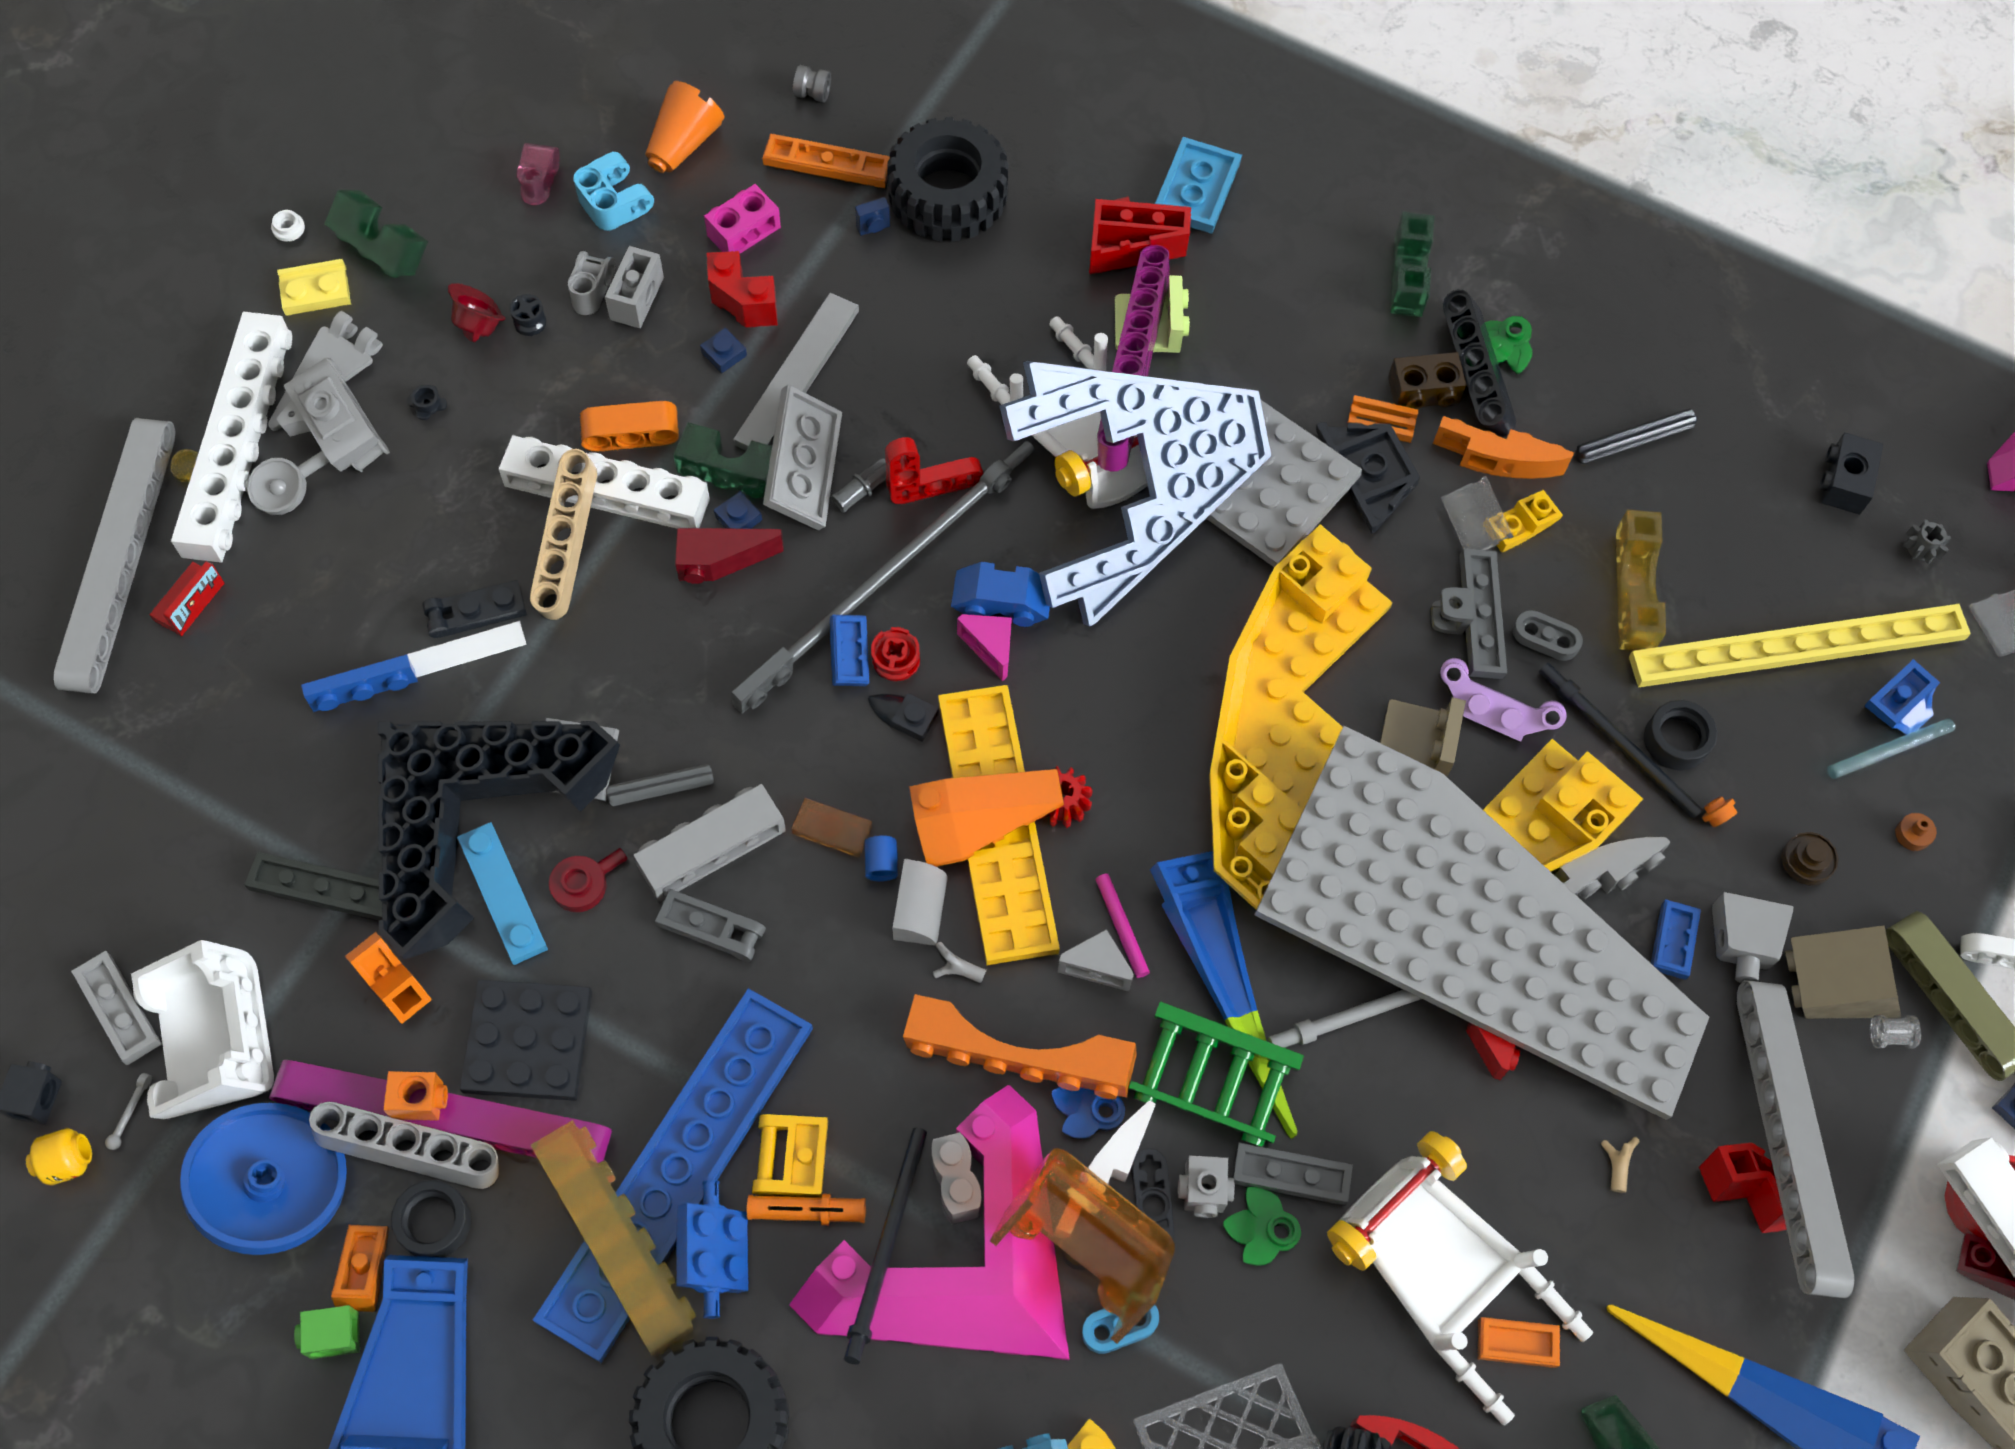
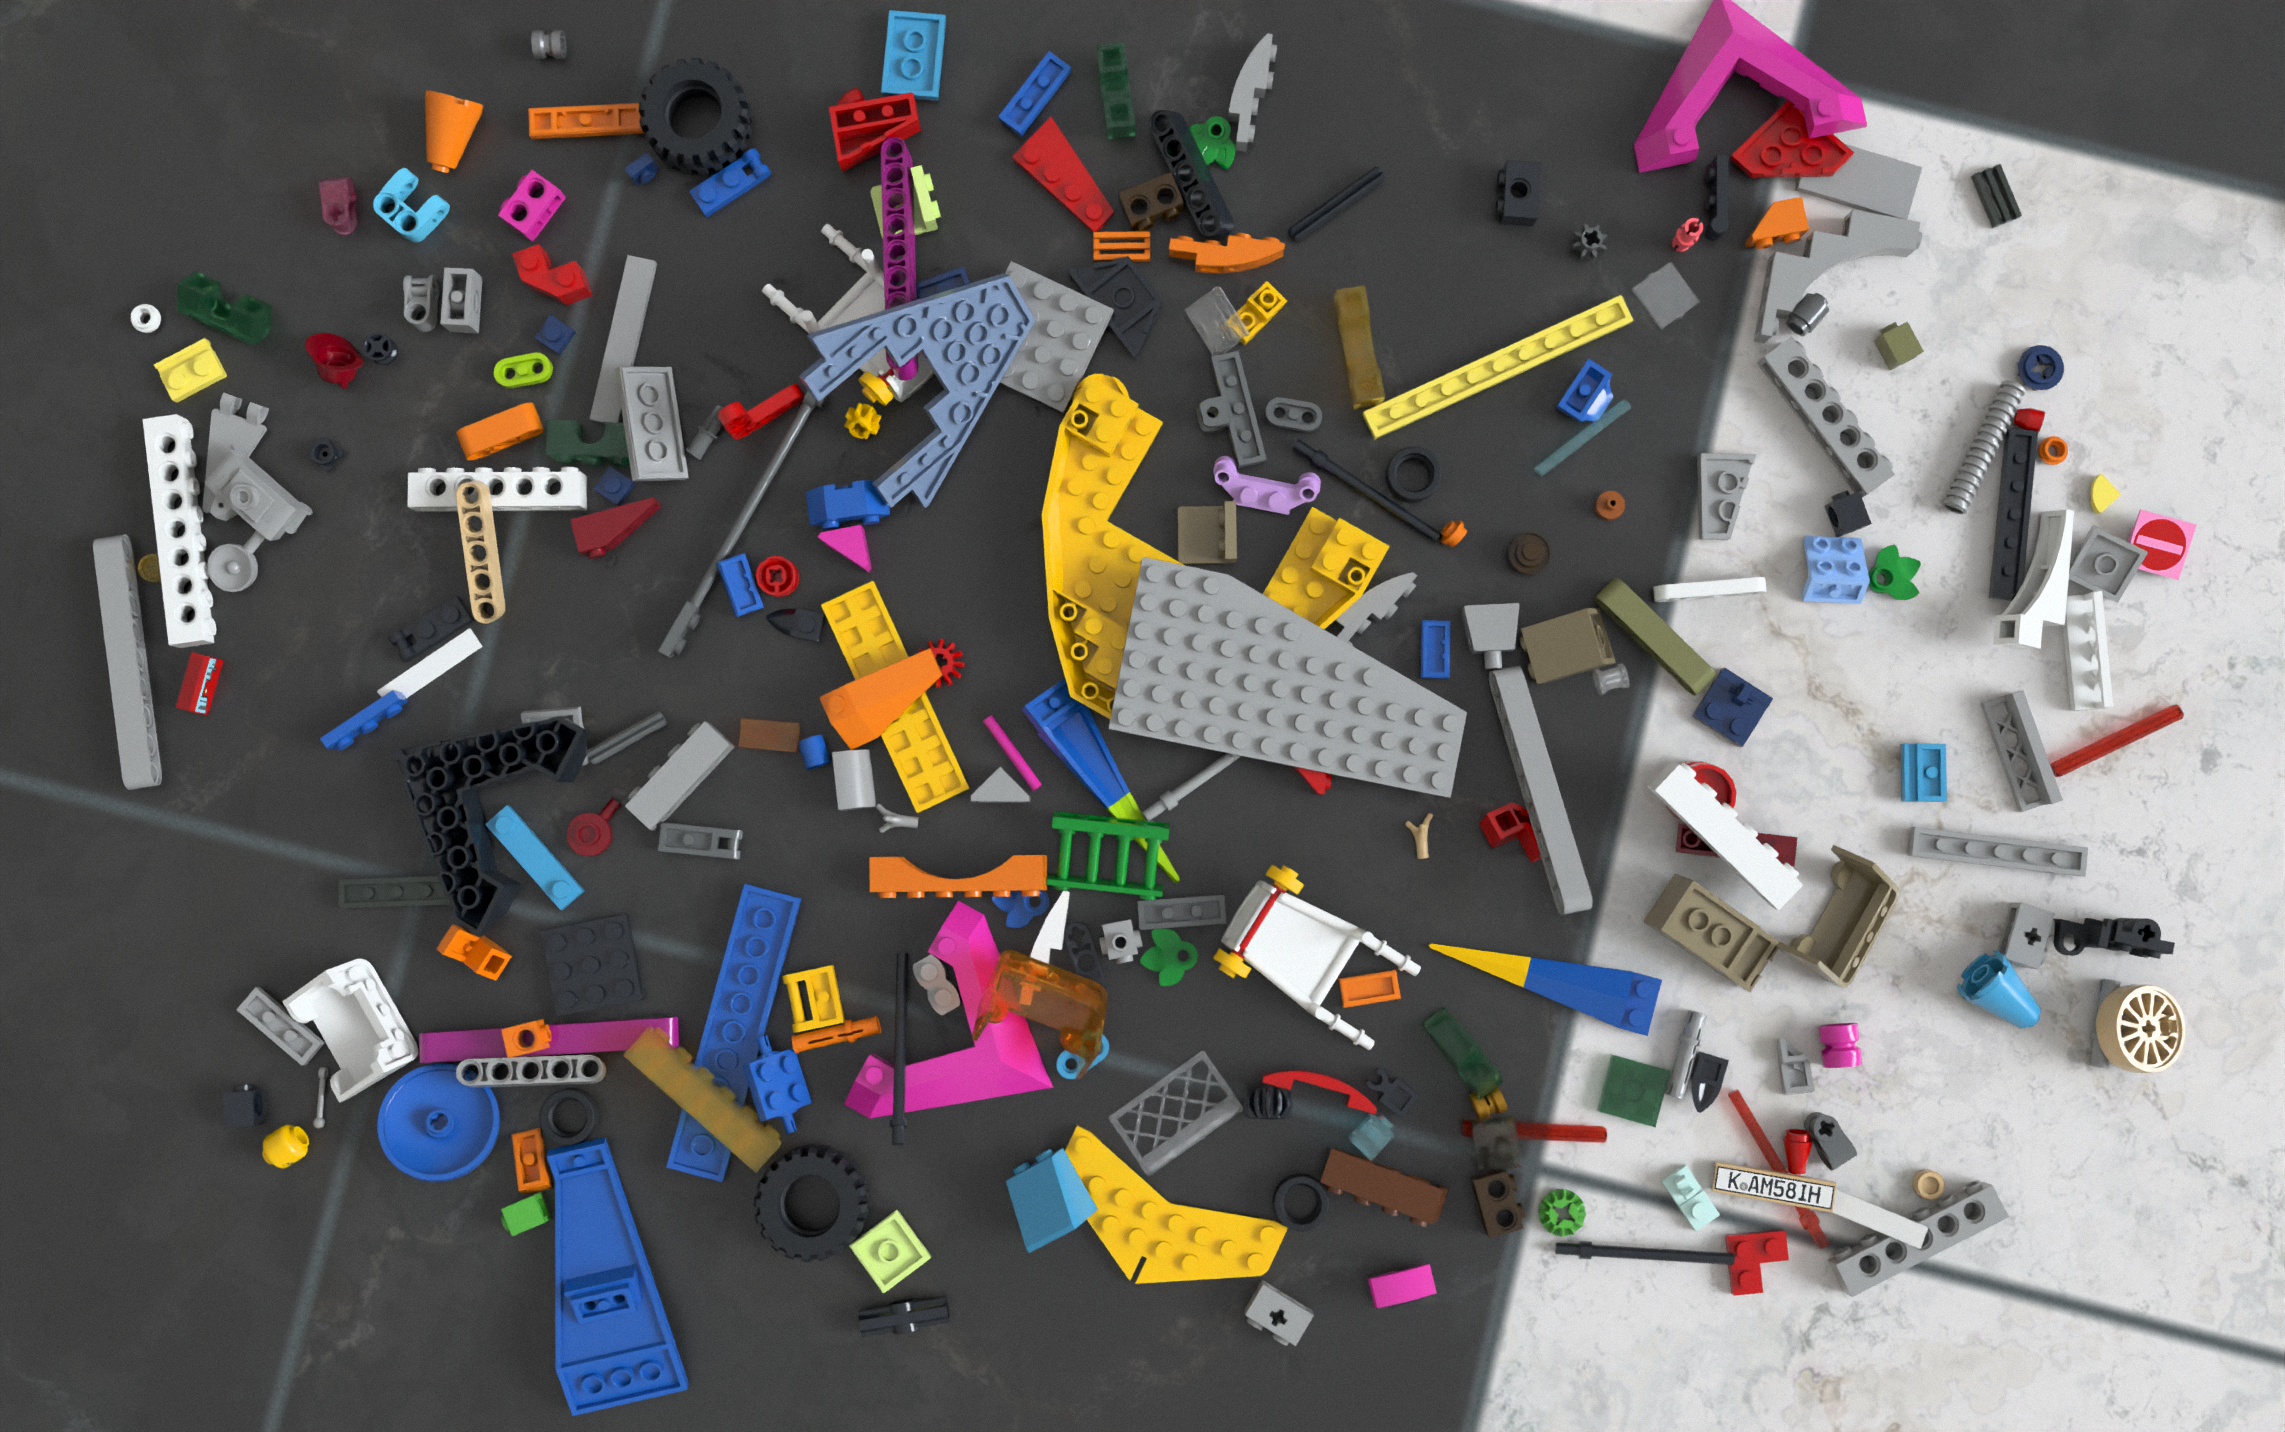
camera: 10 degrees left, 20 degrees up
(677, 372) = (524, 370): none -> lime plate
(963, 254) = (730, 183): none -> blue plate
(1037, 521) = (862, 421): none -> yellow gear
(1320, 250) = (1035, 93): none -> blue plate
(1331, 333) = (1061, 173): none -> red wing
(1561, 301) = (1251, 83): none -> light grey slope

